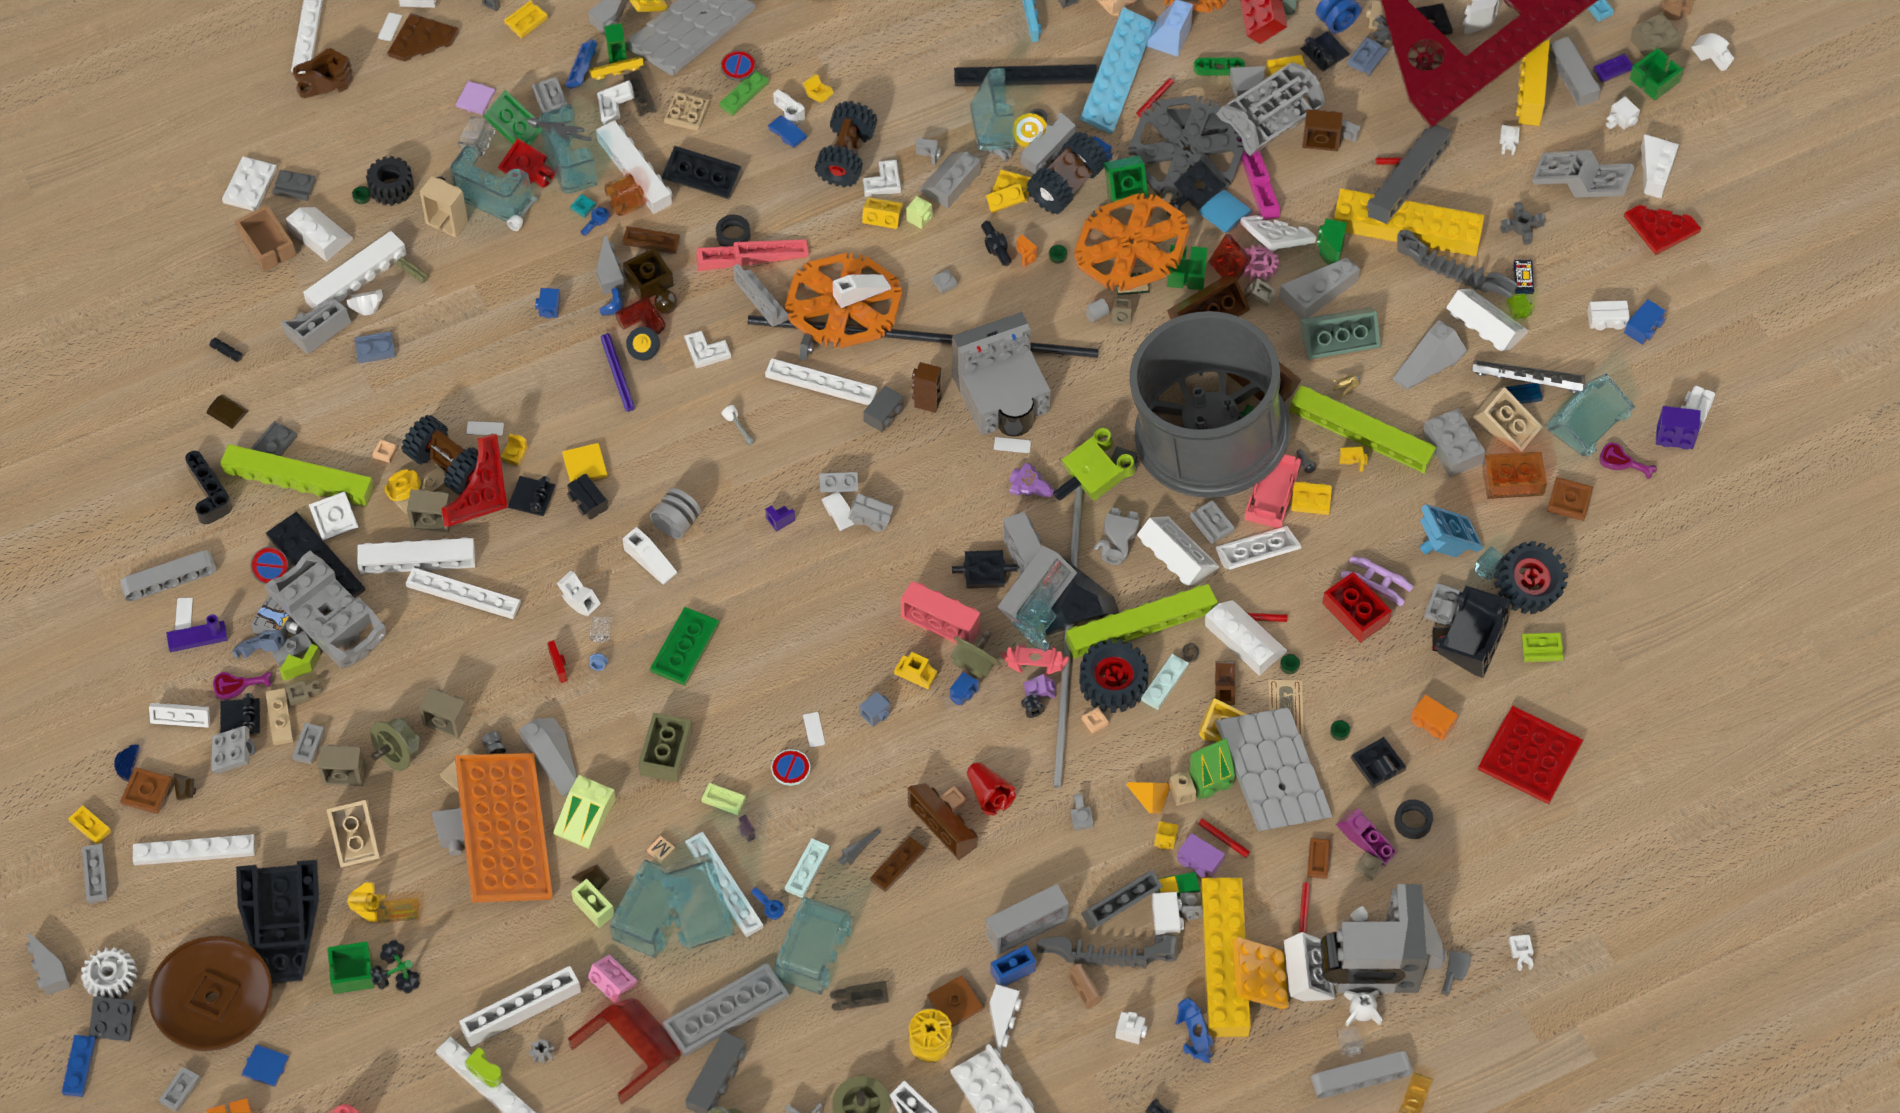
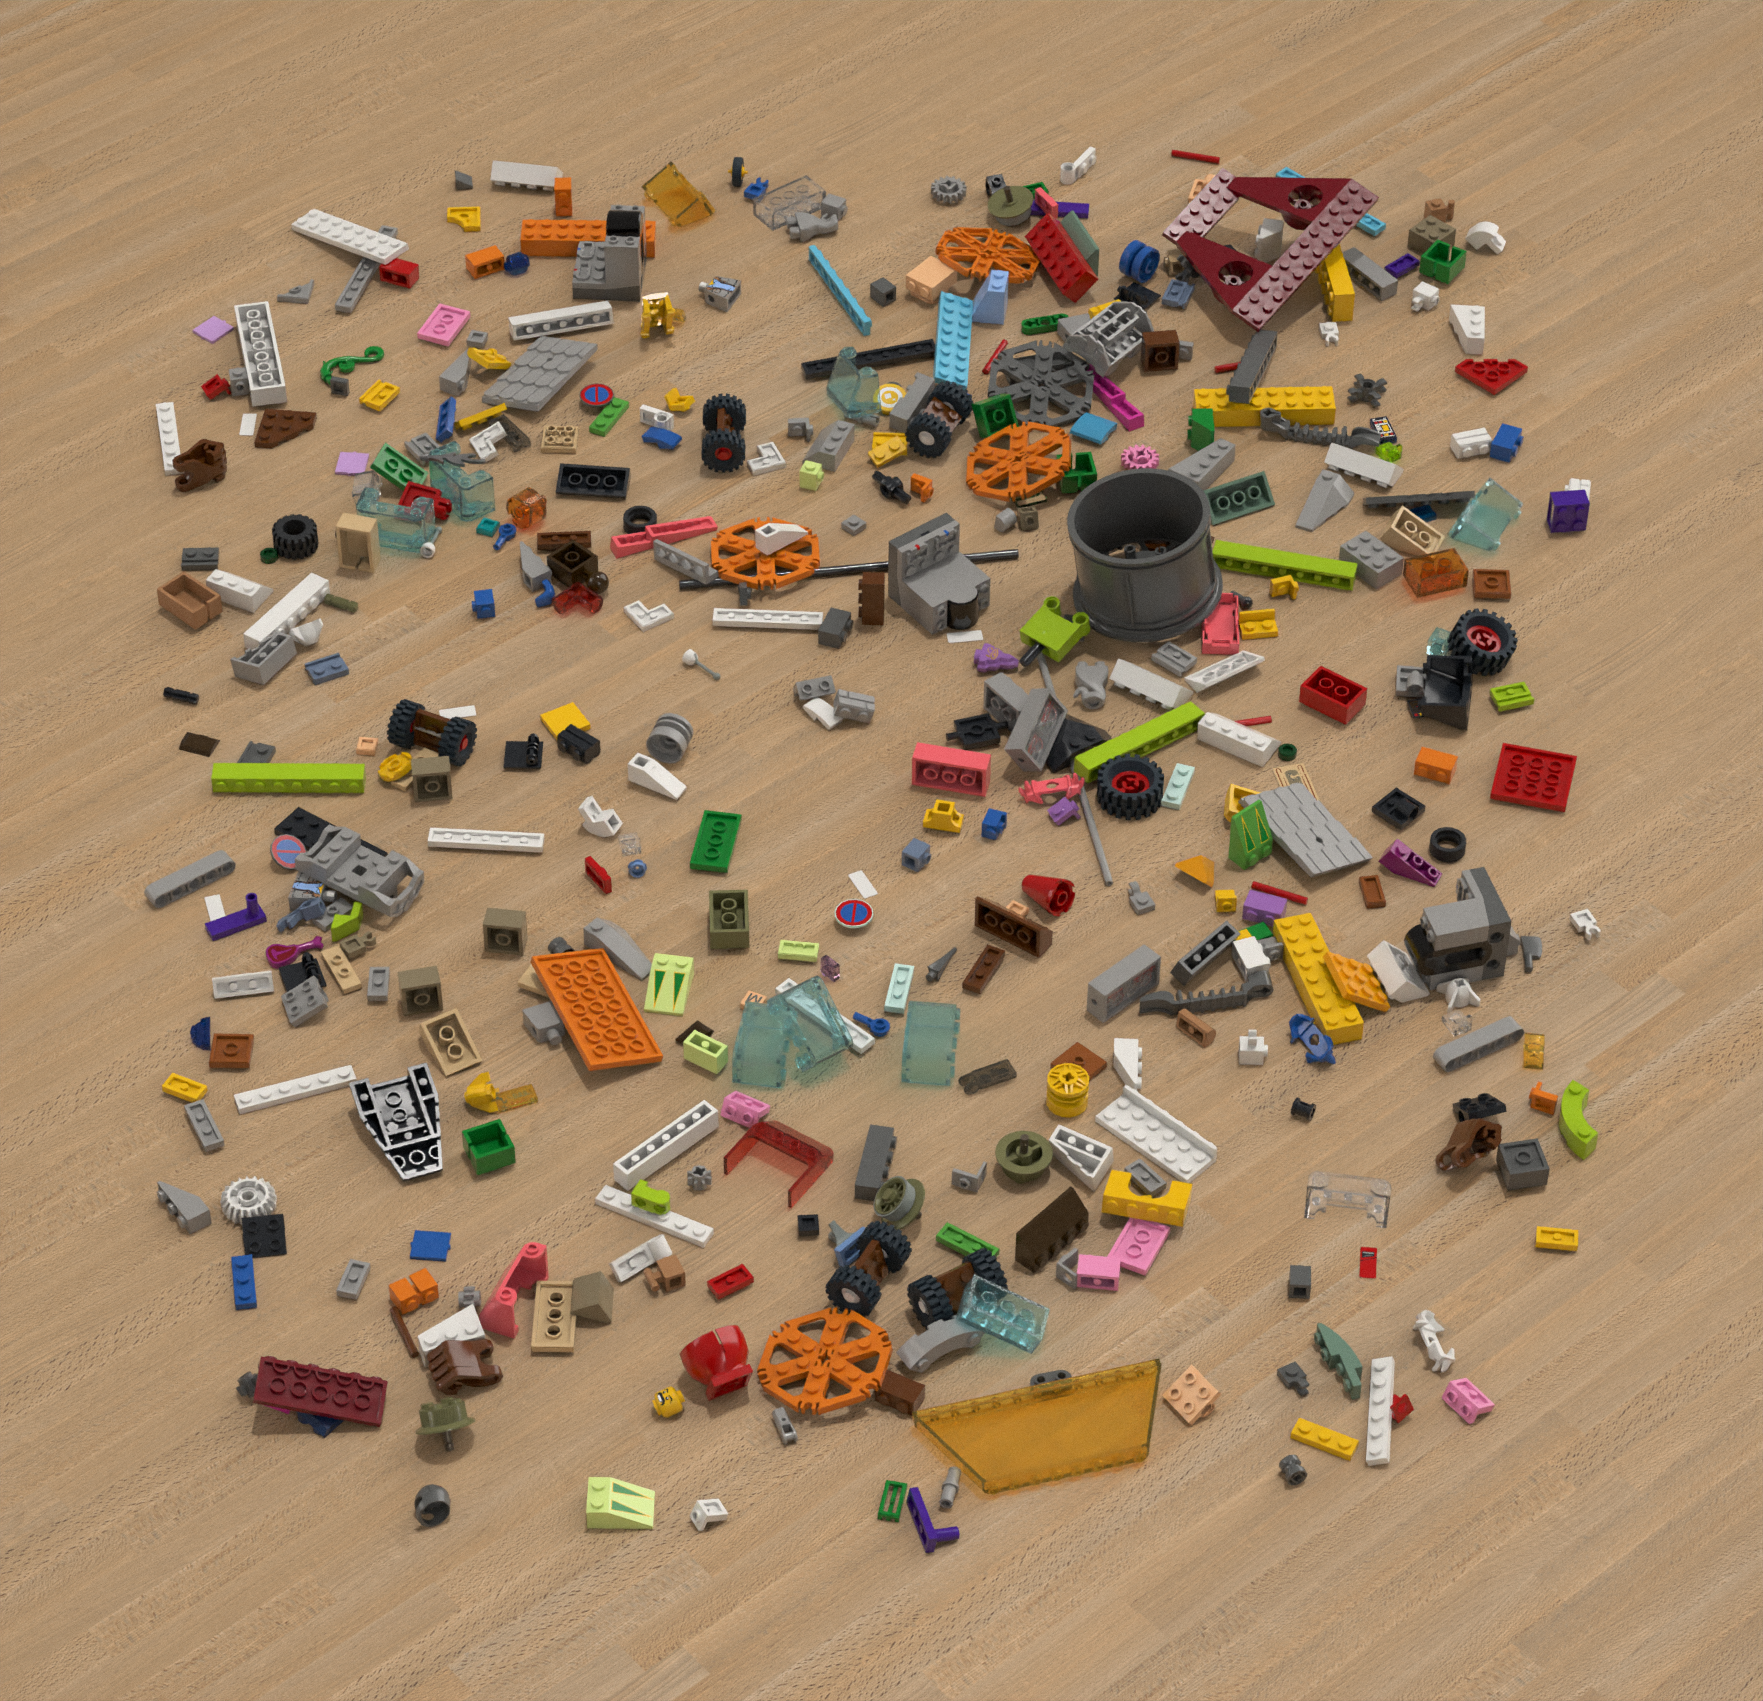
camera: 15 degrees left, 15 degrees down
(184, 787) = (268, 1040): dark brown piece -> none
(207, 483) = (213, 808): black beam -> none
(207, 967) = (367, 1172): reddish brown dish -> none
(249, 184) = (155, 564): white plate -> none
(333, 516) = (337, 801): white plate -> none
(394, 743) = (465, 963): olive piece -> none
(406, 980) = (526, 1126): black plant -> none
(422, 555) = (418, 820): white brick -> none
(486, 489) = (480, 749): red plate -> none
(514, 450) = (493, 721): yellow bracket -> none
(615, 42) = (474, 394): green piece -> none
(617, 372) = (570, 646): dark purple axle -> none
(632, 161) = (514, 479): white brick -> none
(643, 343) = (587, 618): black wheel -> none
(725, 1009) = (866, 1107): light grey plate -> none
(779, 518) = (768, 728): dark purple panel -> none
(882, 212) = (775, 483): yellow bracket -> none
(973, 656) = (995, 792): olive piece -> none
(1013, 966) = (1124, 1022): blue brick -> none
(1032, 706) = (1063, 825): black wheel -> none
(1034, 621) = (1042, 755): clear light blue bracket -> none
(1058, 254) = (951, 486): dark green tile -> none
(1095, 720) = (1124, 827): light nougat tile -> none
(1182, 788) = (1227, 859): tan brick -> none
(1187, 647) = (1193, 755): clear smoke bush -> none
(1197, 197) = (1063, 420): black plate -> none
(1225, 682) = (1232, 772): reddish brown slope -> none
(1229, 258) = (1113, 457): clear red plate -> none
(1277, 234) = (1148, 435): white plate -> none
(1304, 907) = (1373, 927): red bar -> none
(1340, 730) = (1353, 792): dark green tile -> none
(1350, 381) = (1257, 533): pearl gold piece -> none
(1369, 865) = (1421, 888): dark tan plate -> none
(1389, 576) = (1335, 665): lavender piece -> none
(1448, 532) = (1392, 623): dark azure brick -> none
(1583, 174) = (1407, 343): light grey bracket -> none
(1615, 458) = (1520, 548): magenta piece -> none

